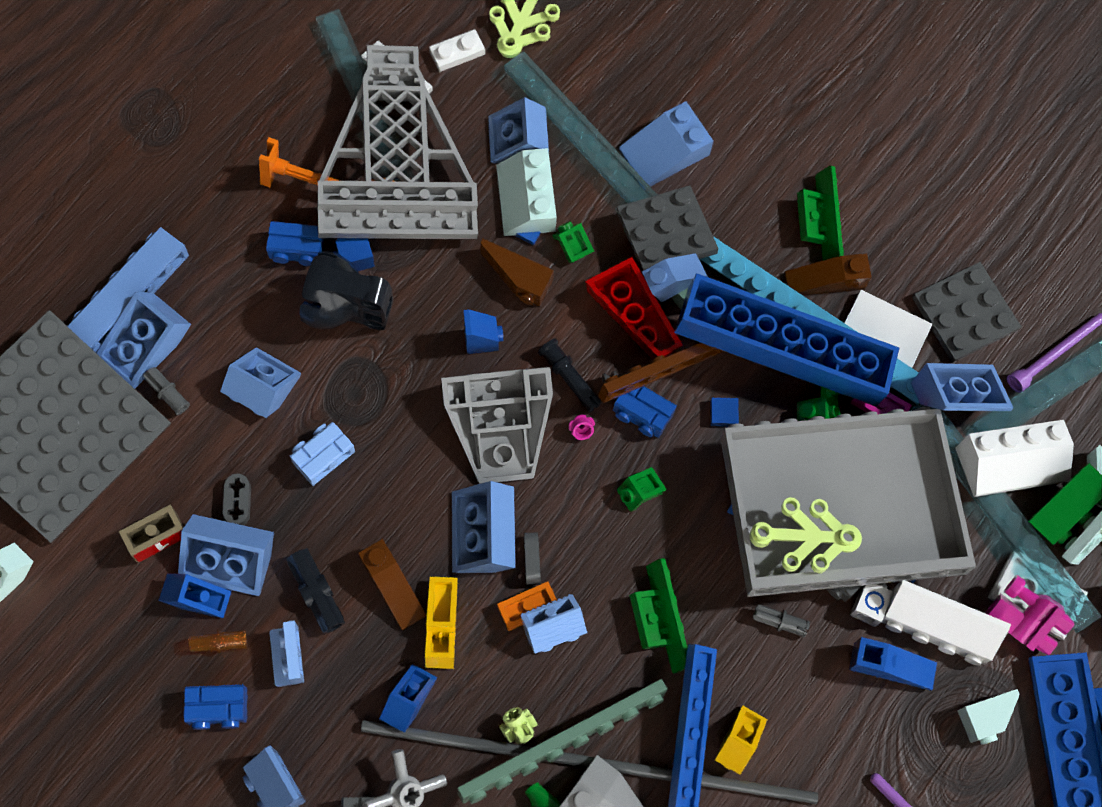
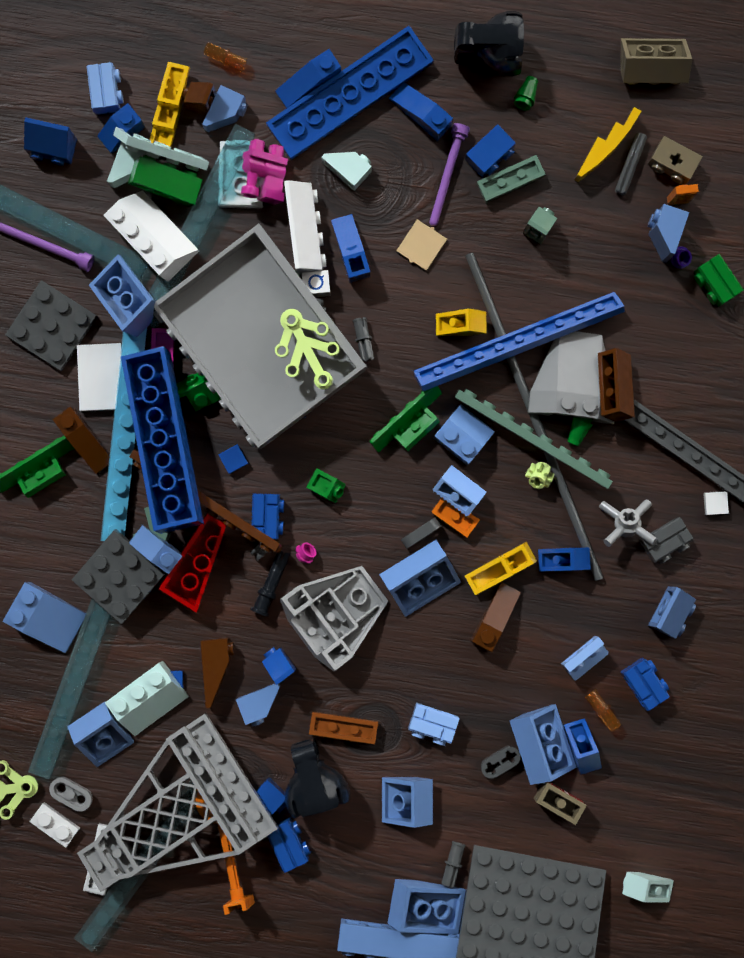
camera: 120 degrees left, 15 degrees up
(315, 591) = (531, 666): black piece -> none
(376, 362) = (343, 727): none -> dark orange plate
(454, 292) = (257, 704): none -> medium blue slope
(476, 78) = (71, 794): none -> light grey plate
(573, 241) = (165, 642): green bracket -> none
(613, 668) = (464, 434): none -> medium blue slope
(855, 750) = (421, 245): none -> tan piece

